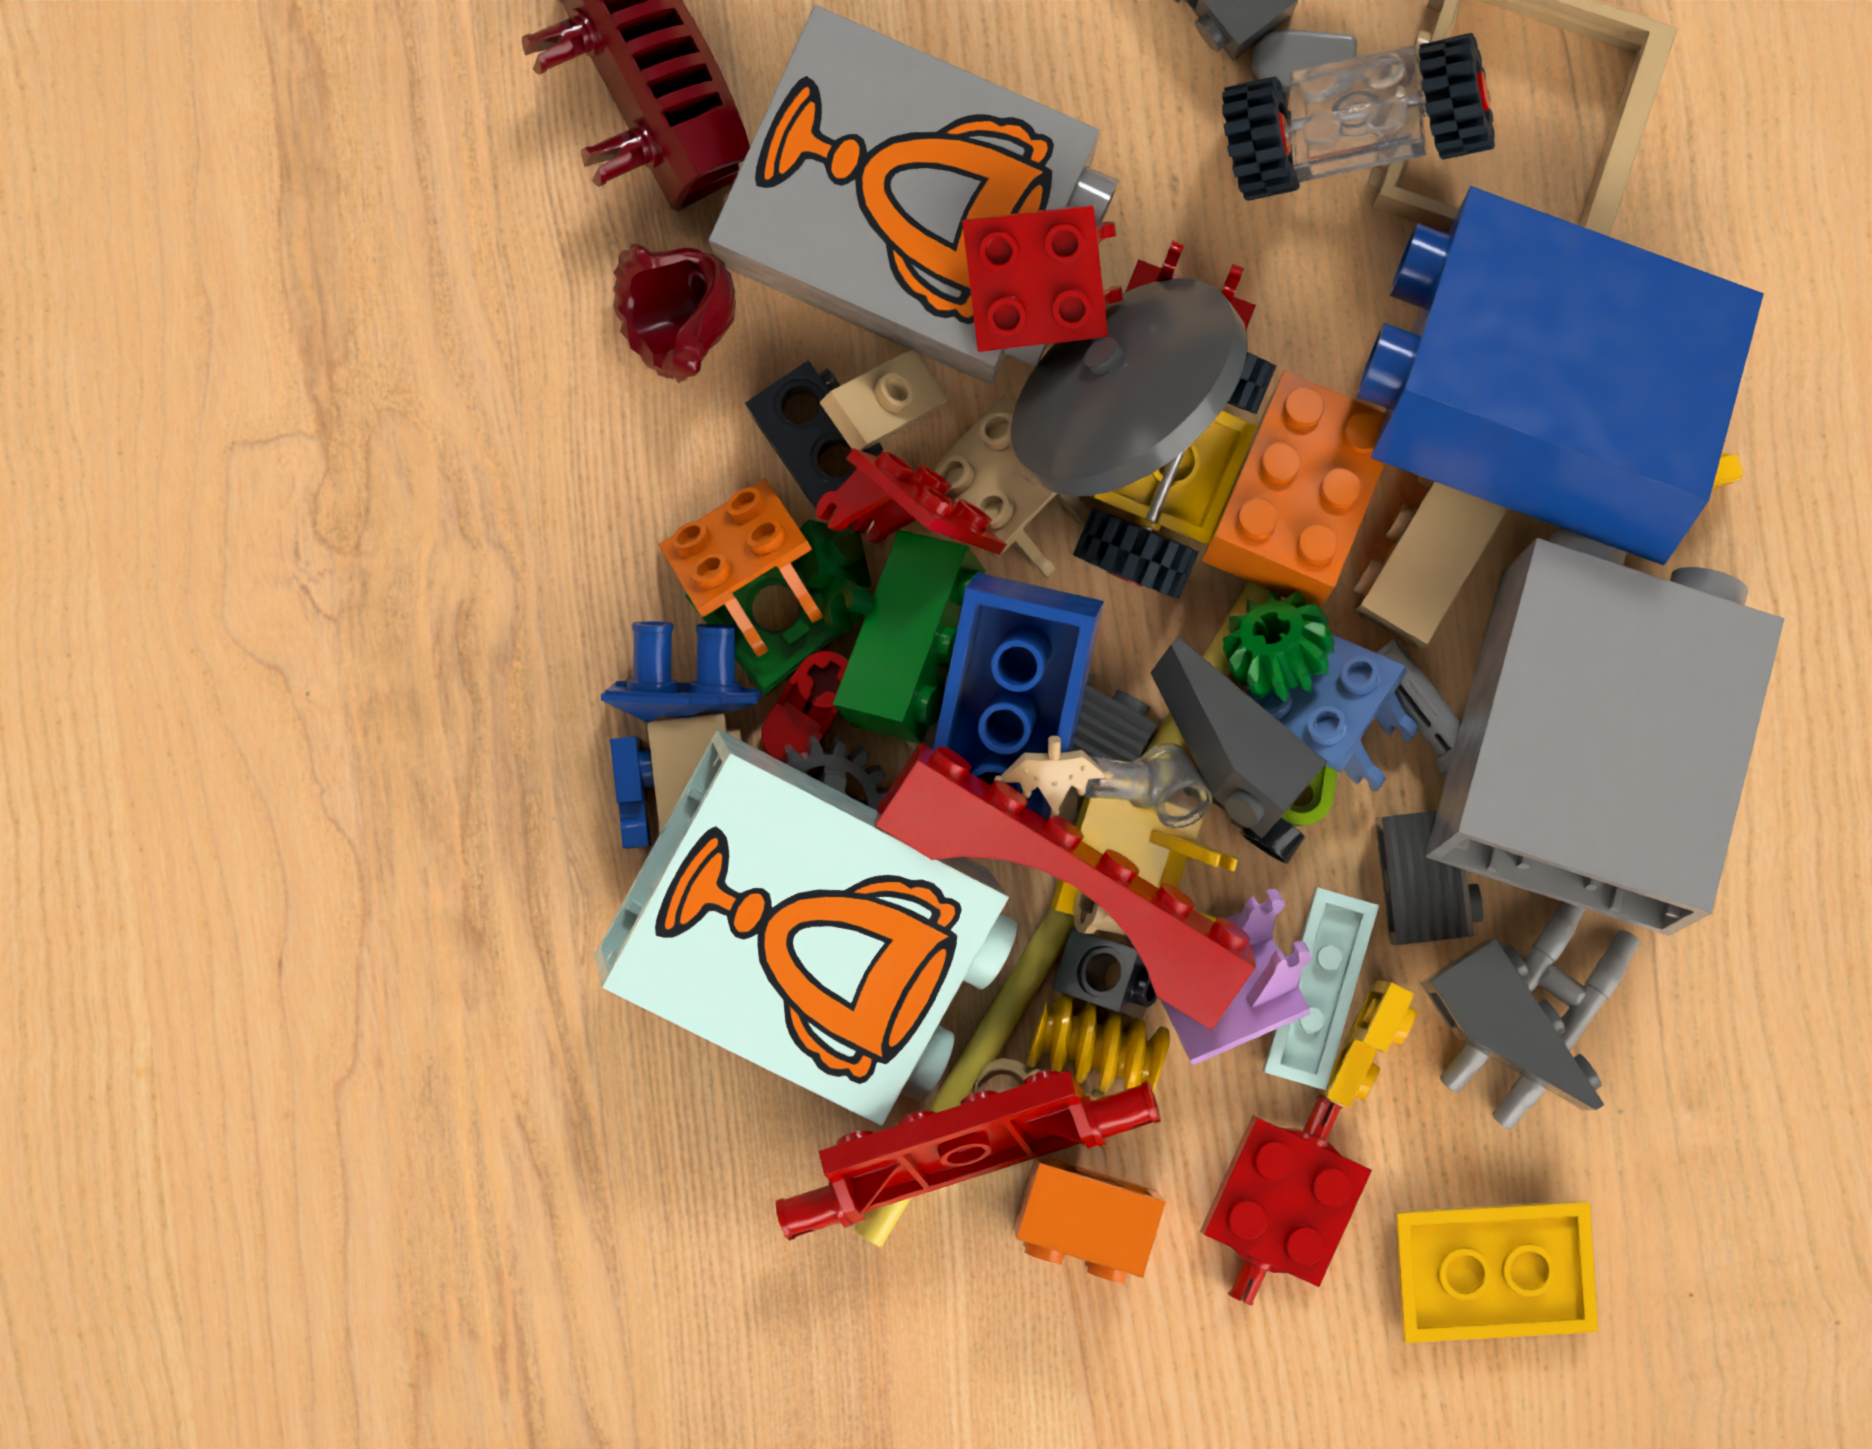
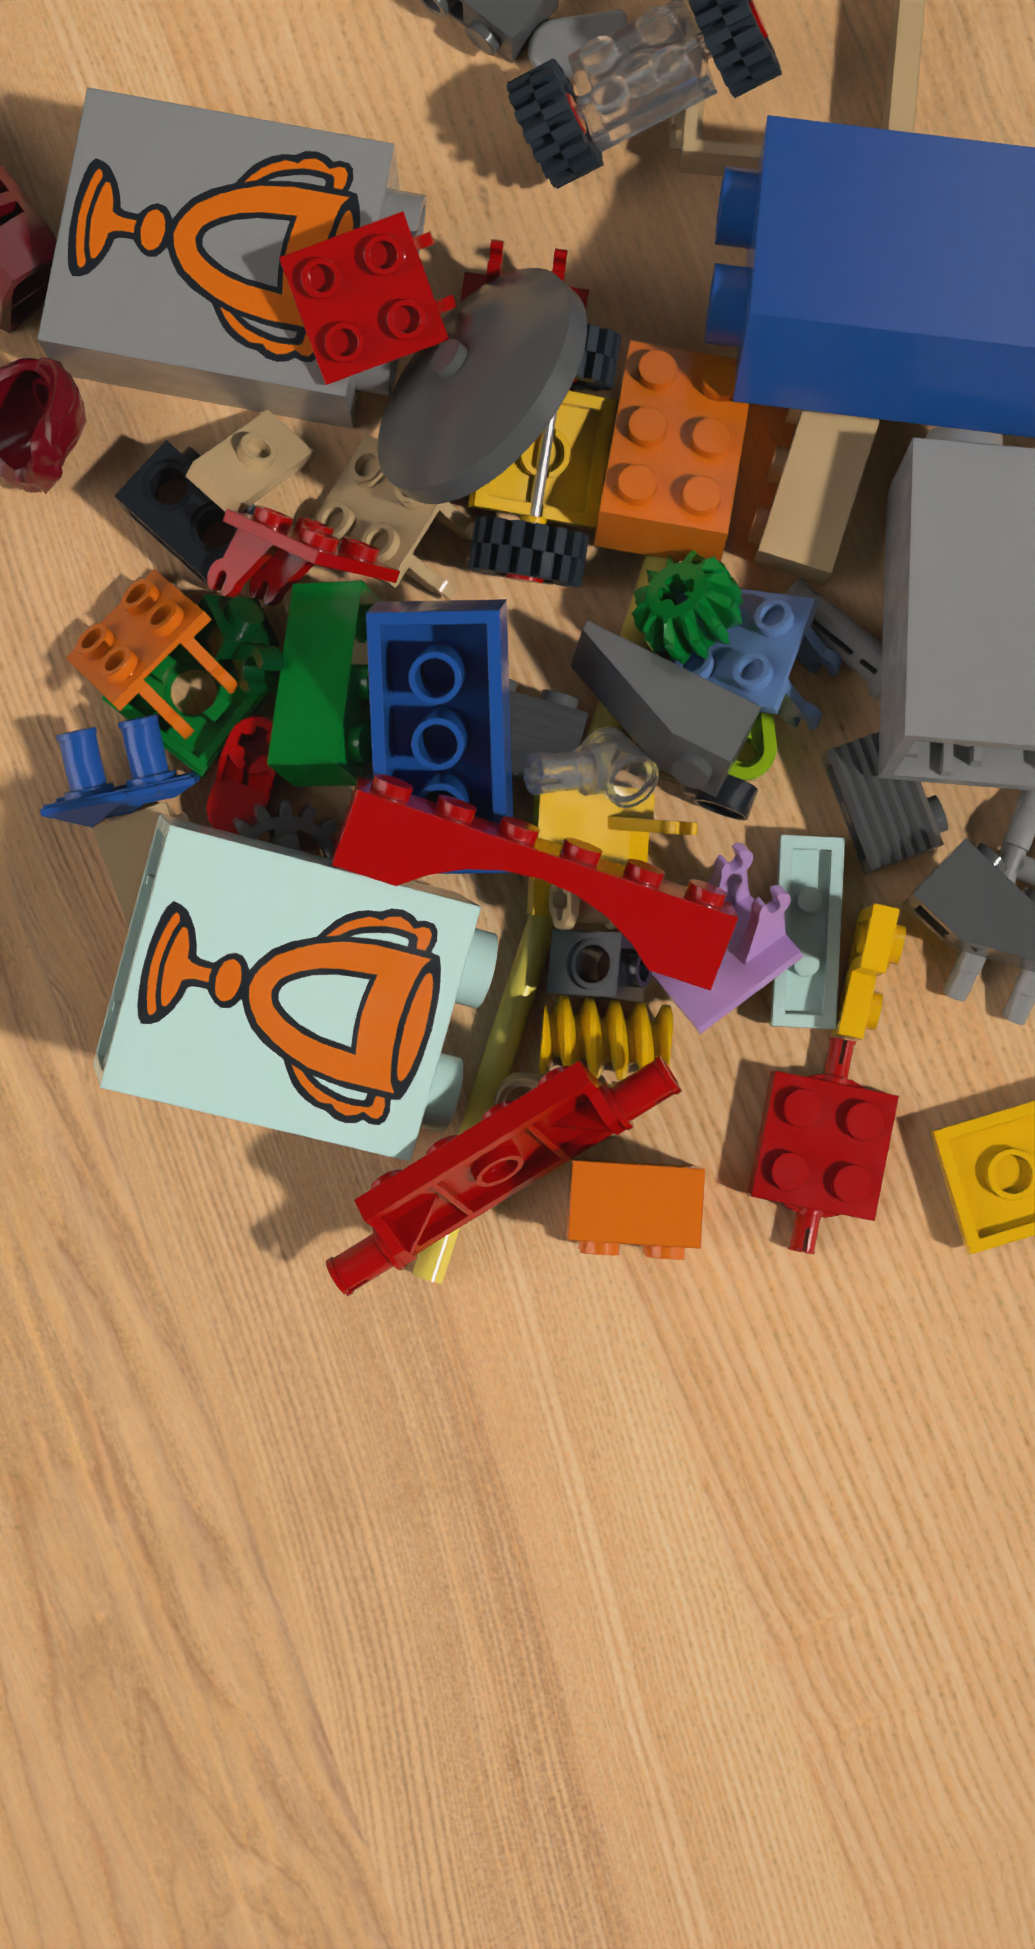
camera: 15 degrees left, 0 degrees up
(632, 776) = (92, 889): blue plate -> none
(1053, 773) = (496, 775): tan piece -> none

